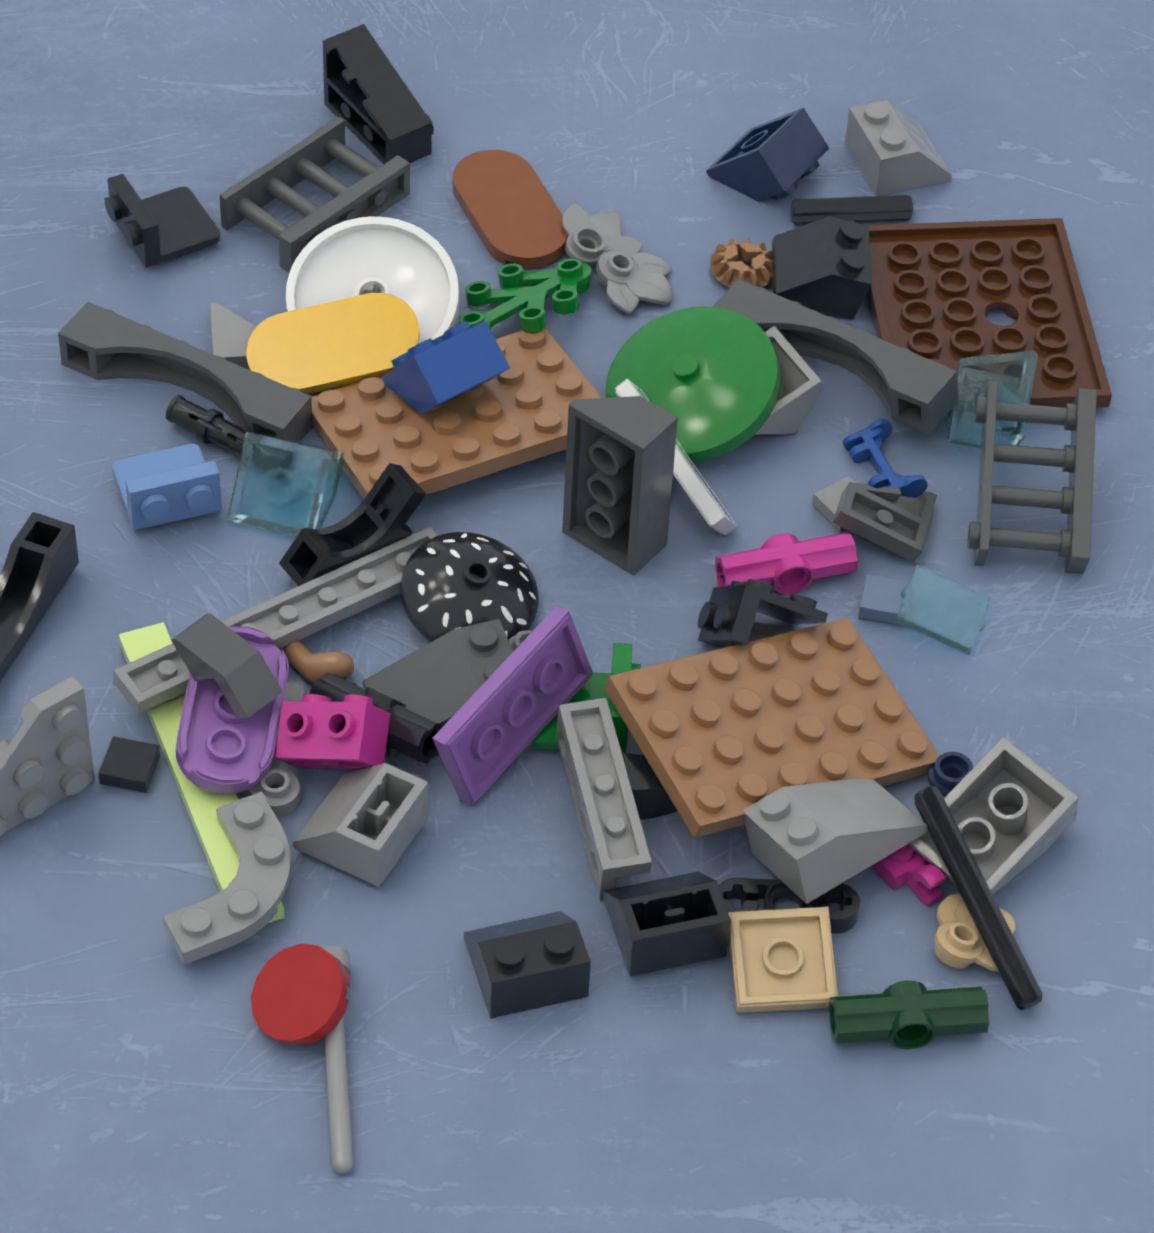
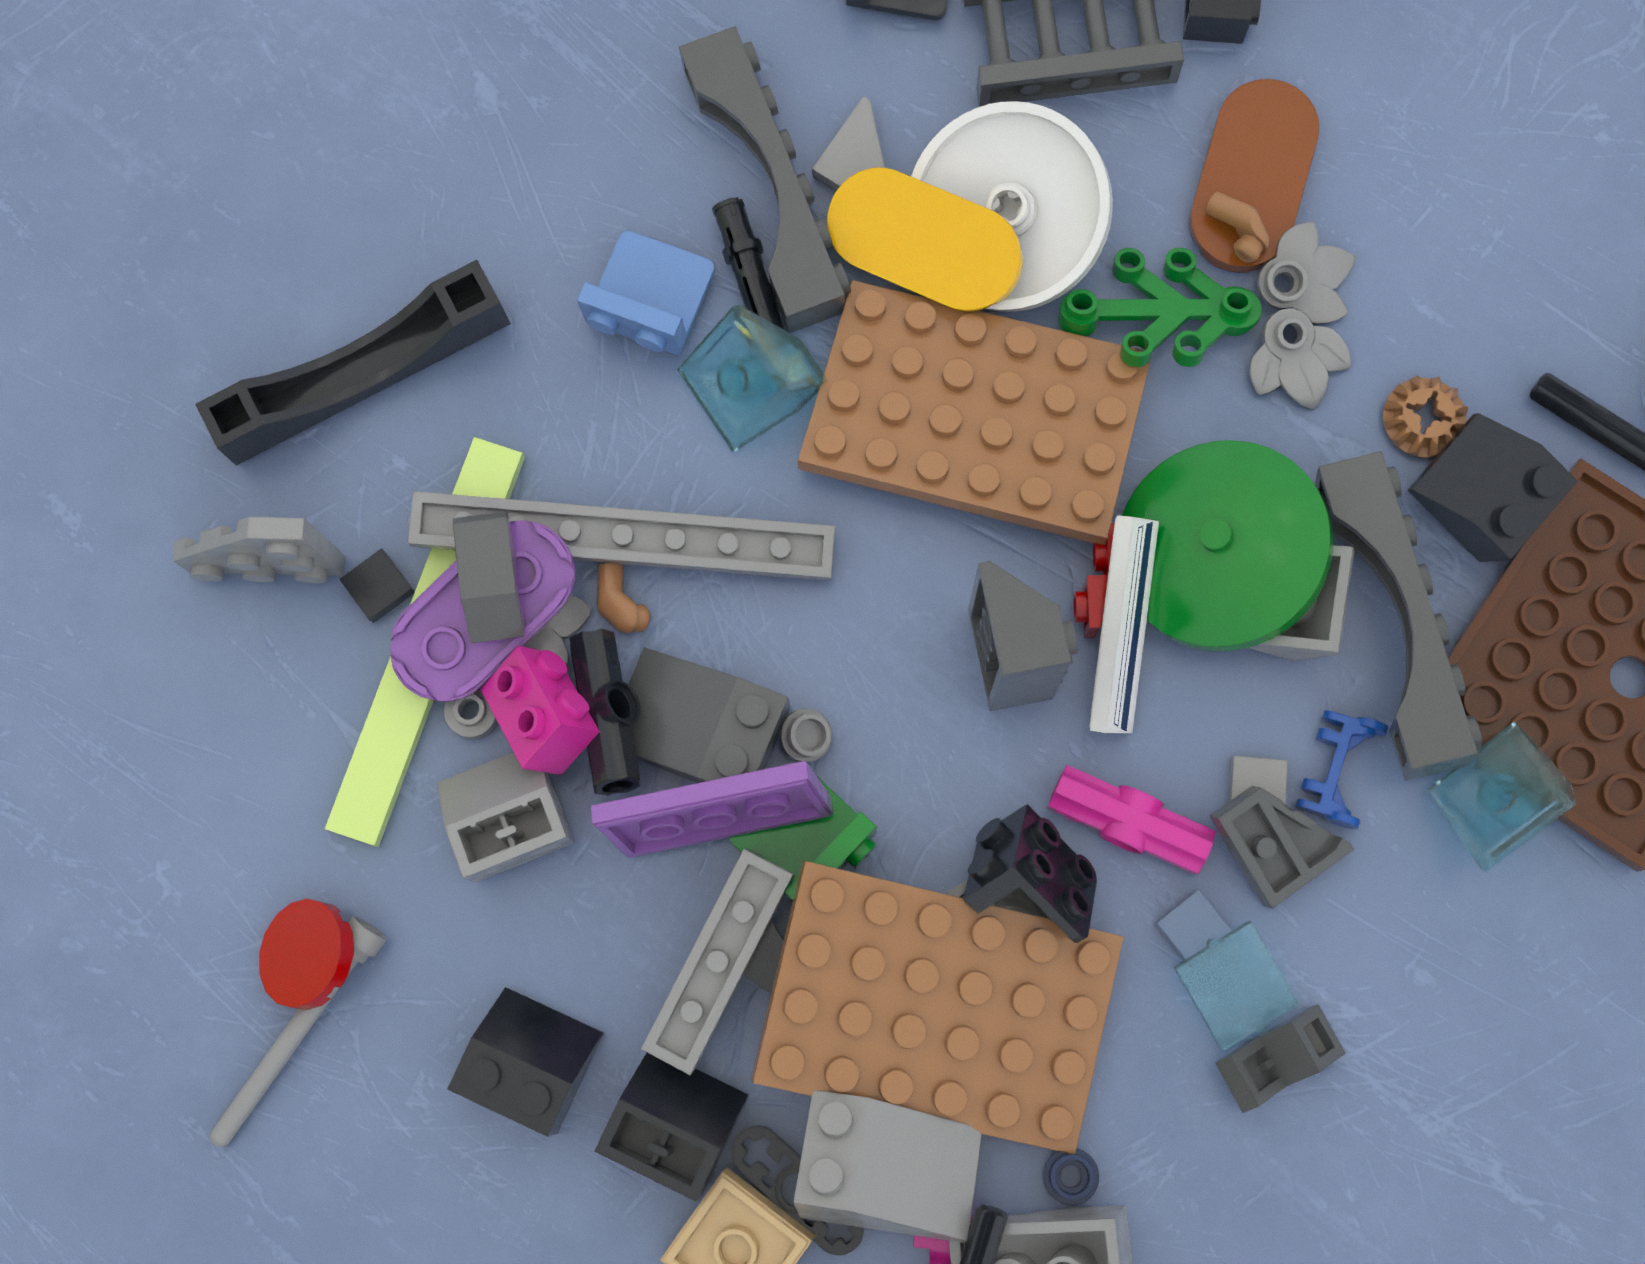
camera: 50 degrees right, 30 degrees up
(252, 894) = (365, 811): light grey plate -> none
(370, 527) = (751, 491): black arch -> none
(444, 595) = (805, 587): black dish -> none
(446, 366) = (985, 362): blue slope -> none
(533, 222) = (1246, 221): none -> medium nougat arm
(771, 157) = (1573, 300): dark blue slope -> none
(1010, 625) = (1280, 1058): none -> dark grey slope
(1073, 500) = (1507, 944): dark grey fence -> none

